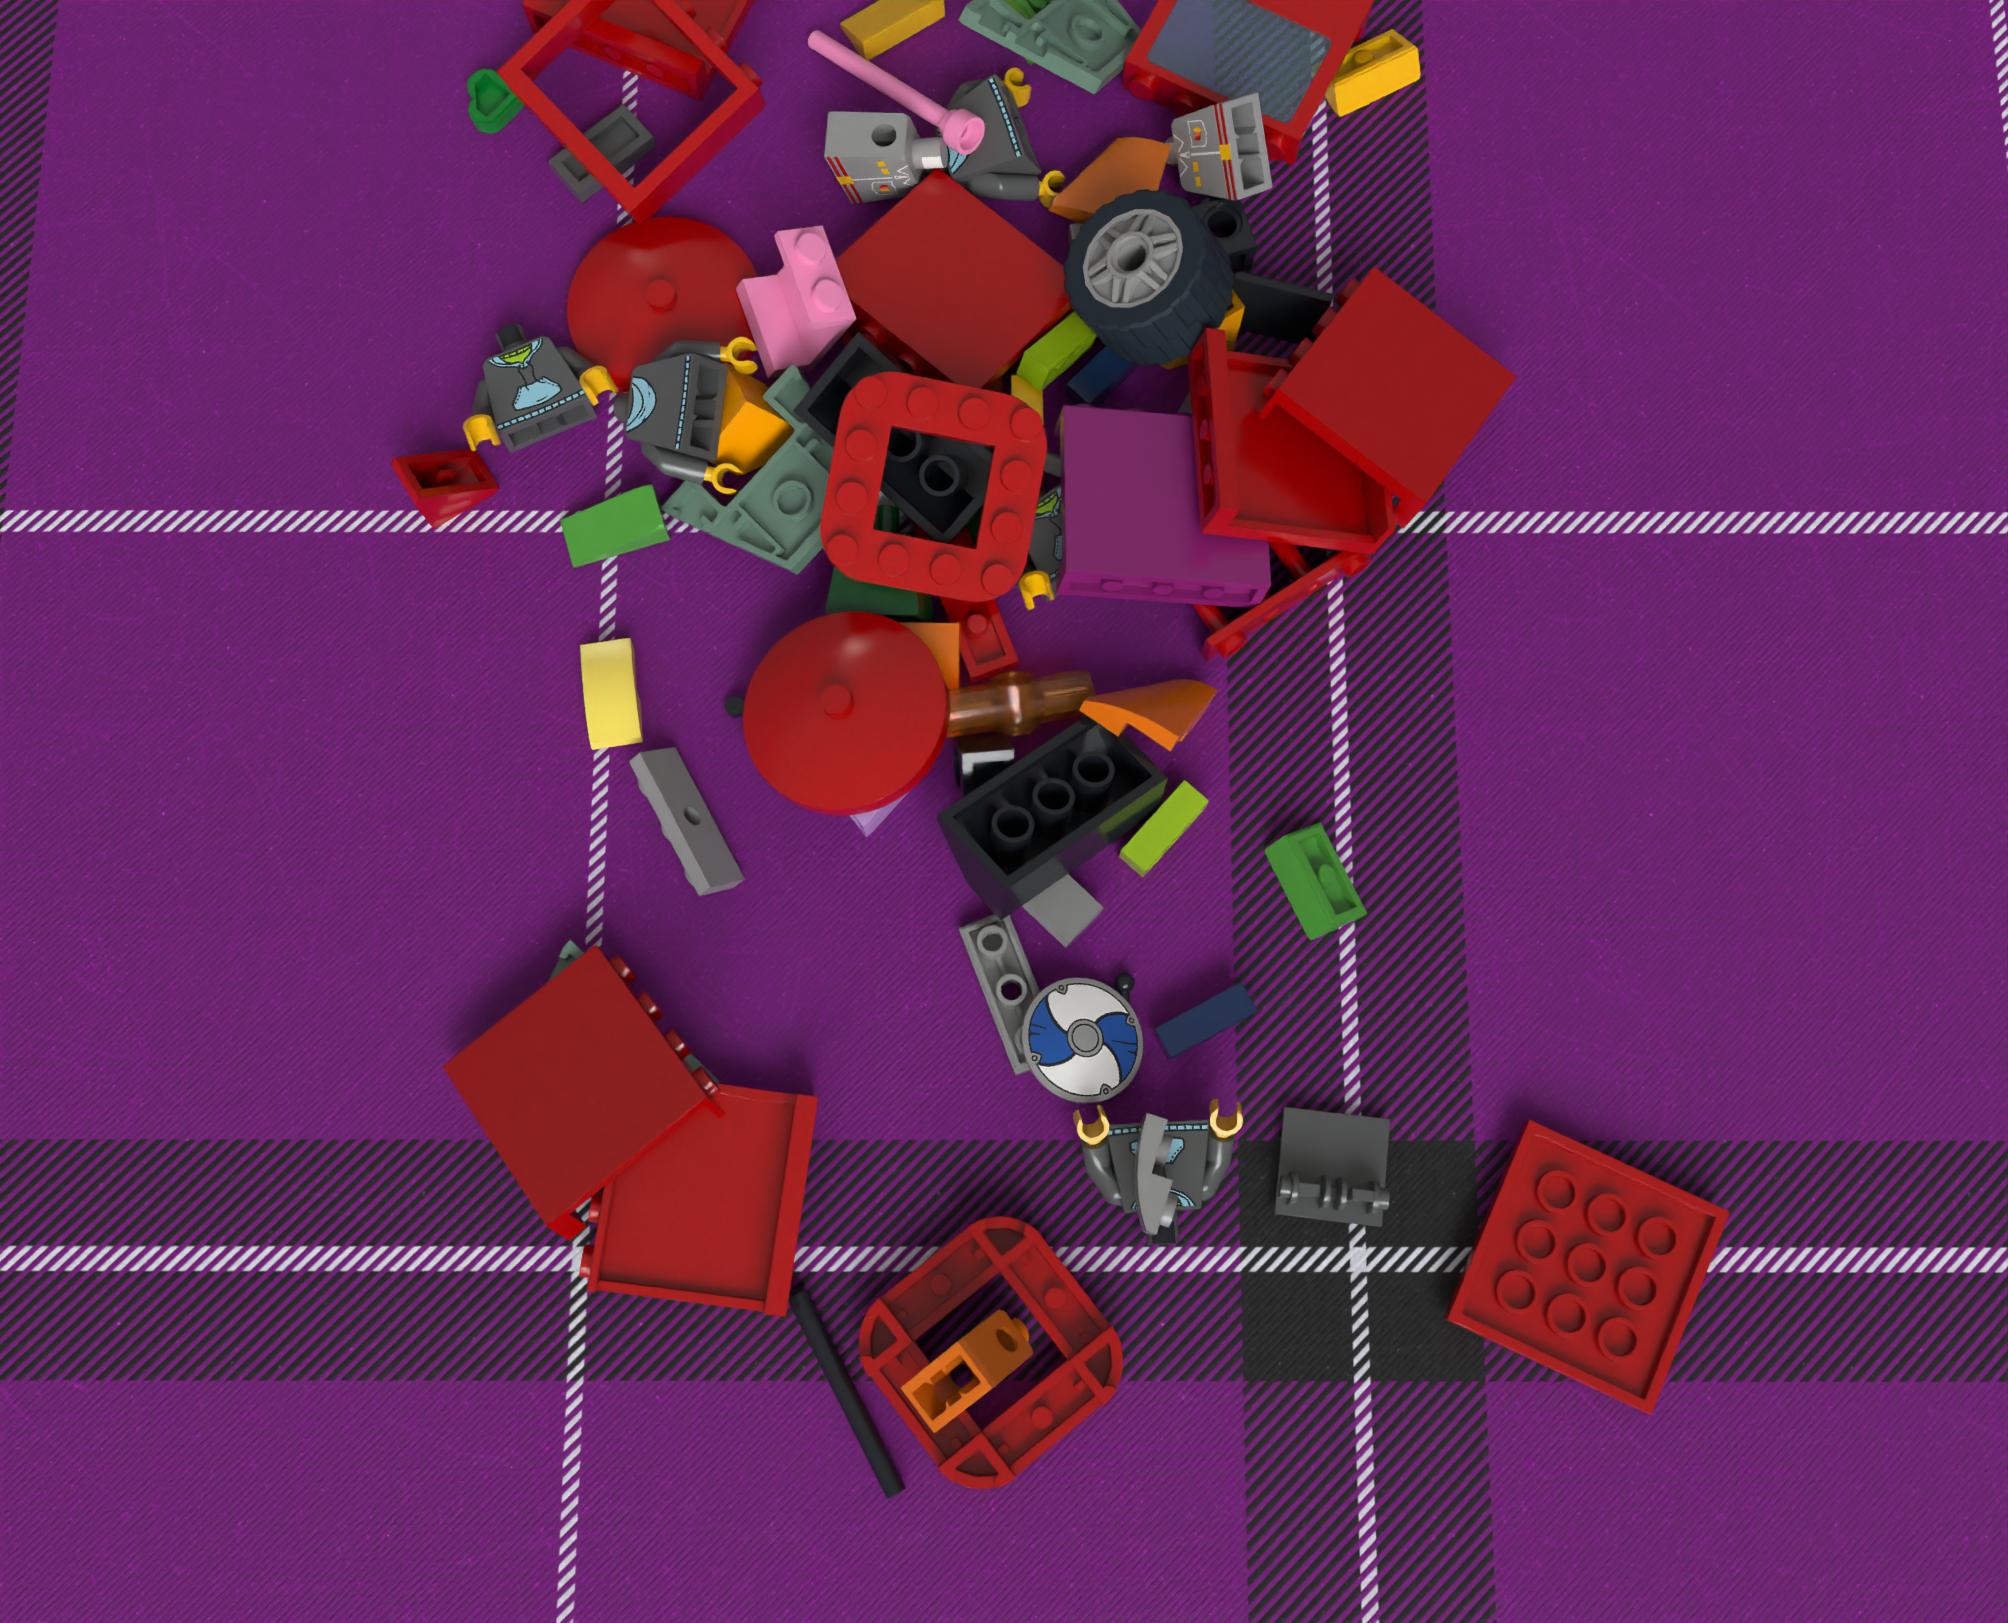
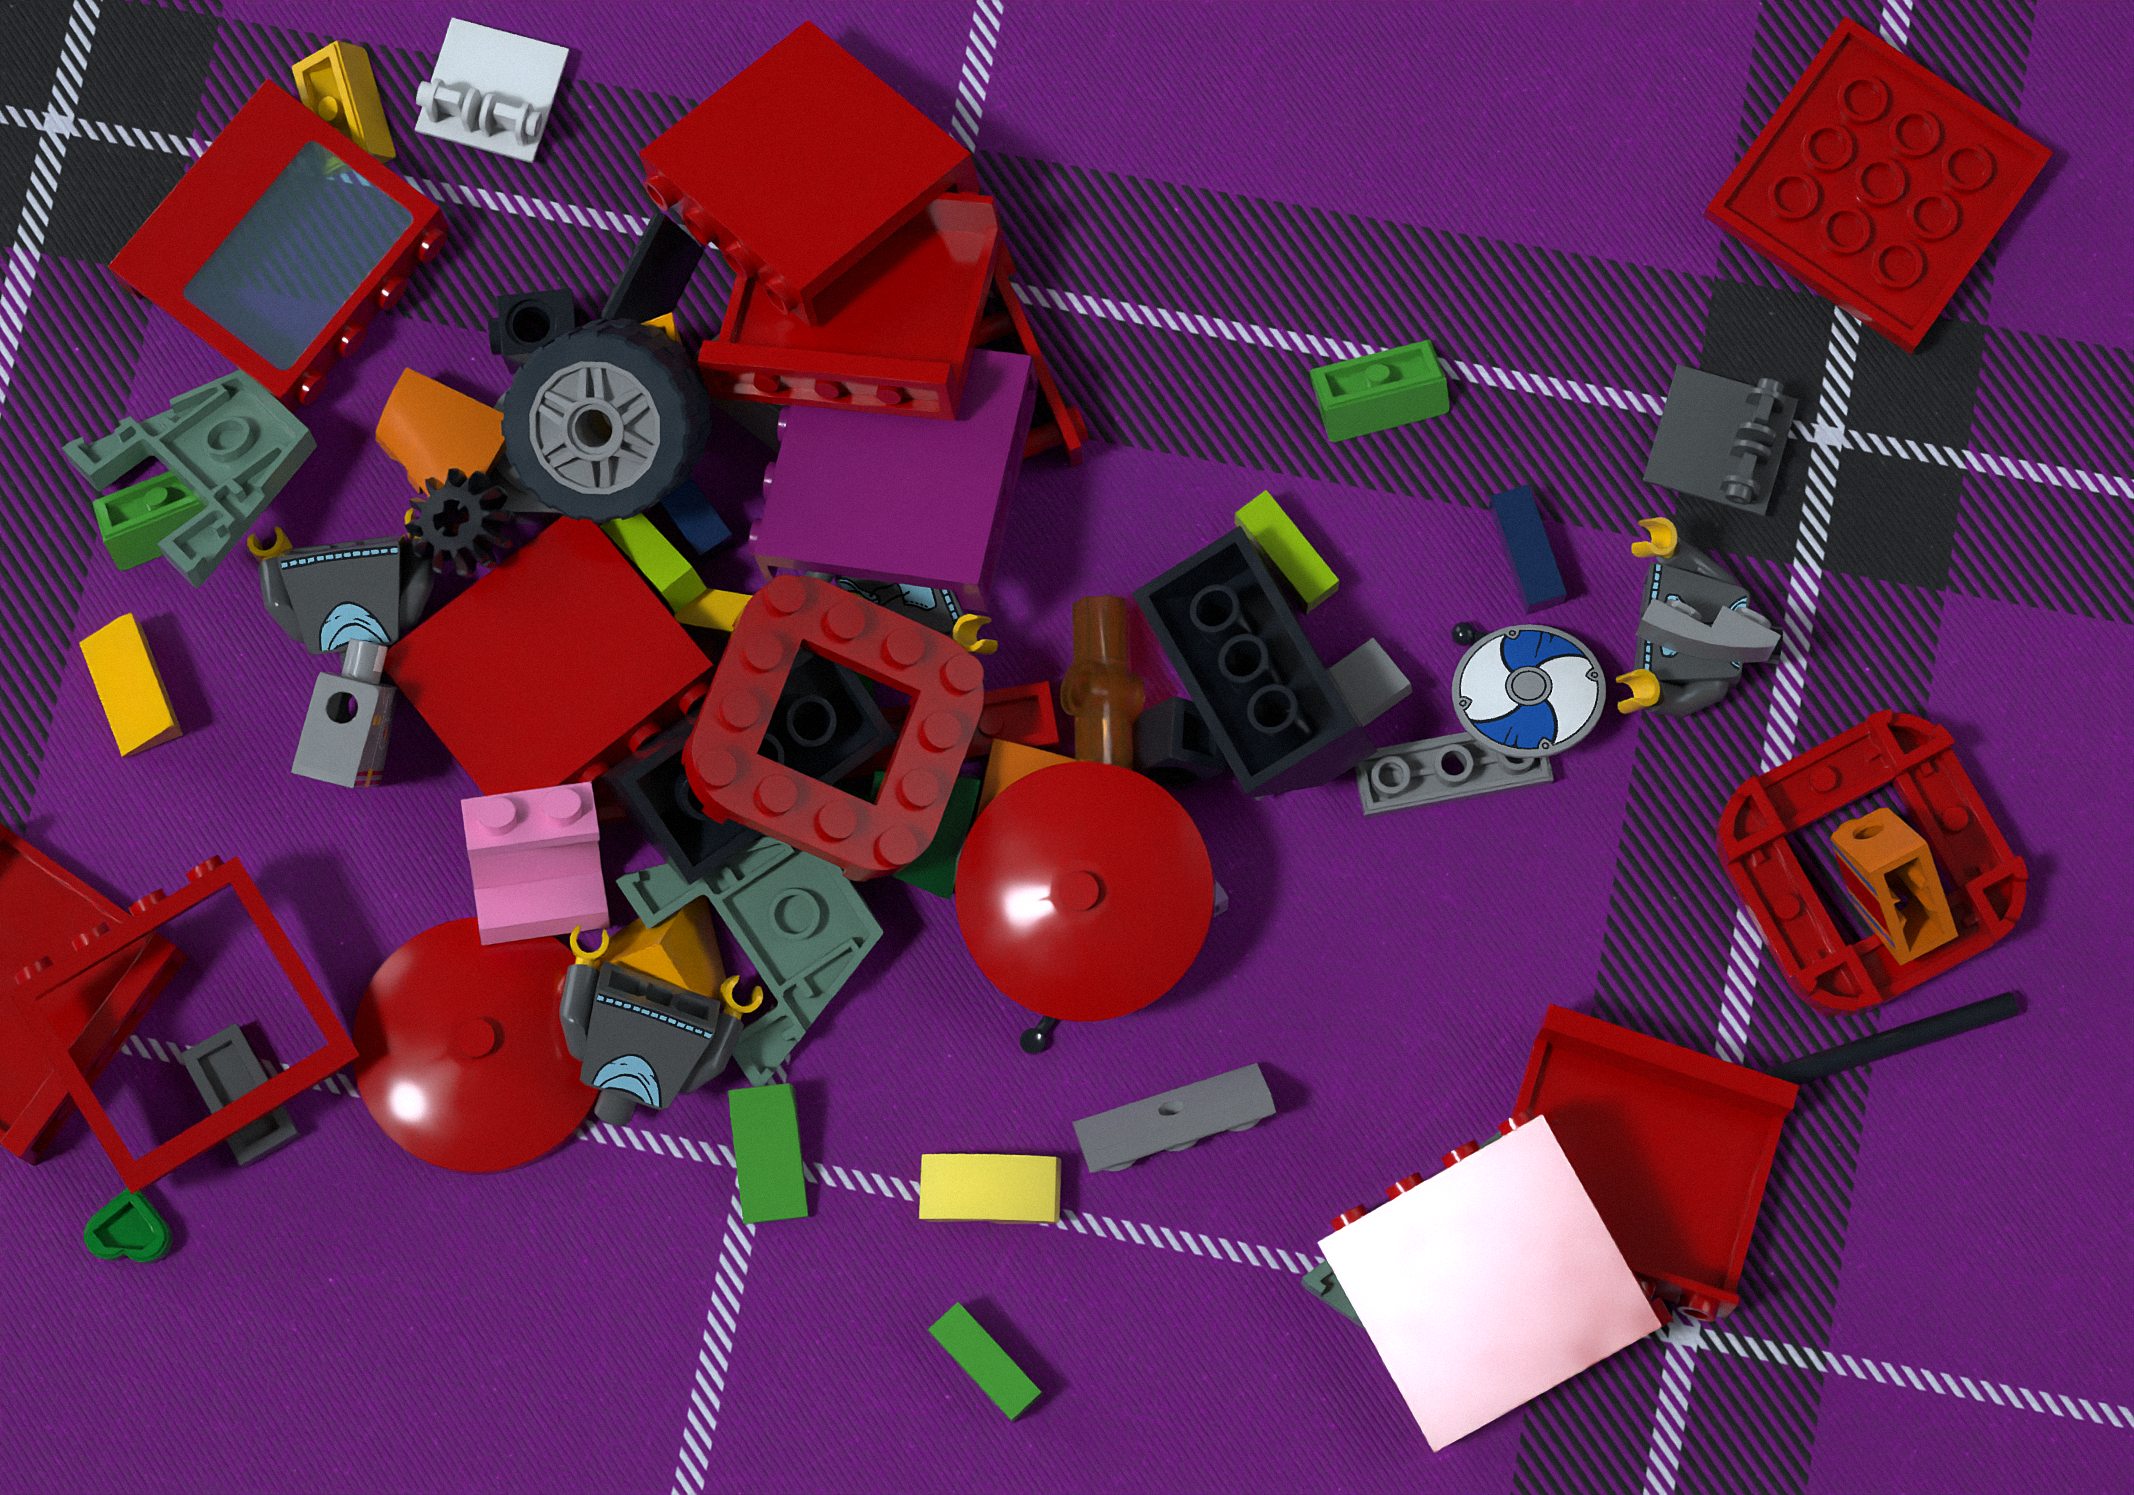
camera: 75 degrees left, 0 degrees up
(445, 482) = (668, 1357): red slope -> none
(477, 714) = (985, 1362): none -> bright green piece
(533, 391) = (566, 1224): dark grey torso -> none
(959, 128) = (343, 616): bright pink piece -> none
(1050, 198) = (447, 508): none -> black gear
(1158, 710) = (1144, 522): orange slope -> none
(1222, 149) = (435, 303): light grey torso -> none
(1406, 168) = (491, 90): none -> white hinge

